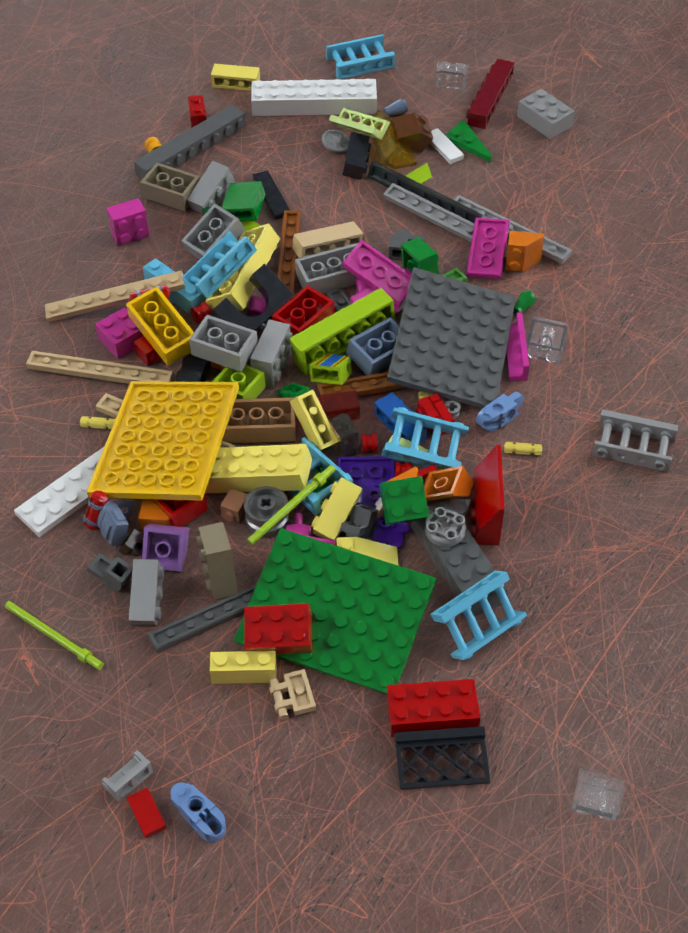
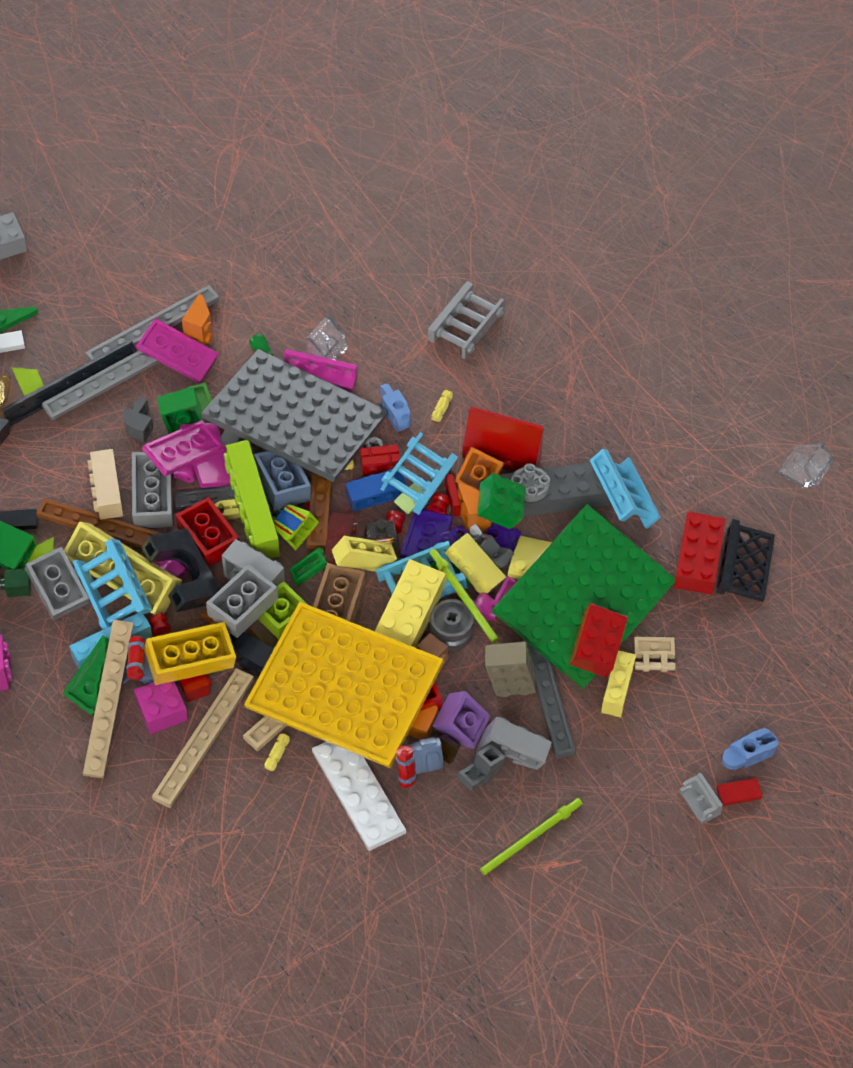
camera: 75 degrees left, 5 degrees up
(133, 276) = (86, 682): none -> green wing

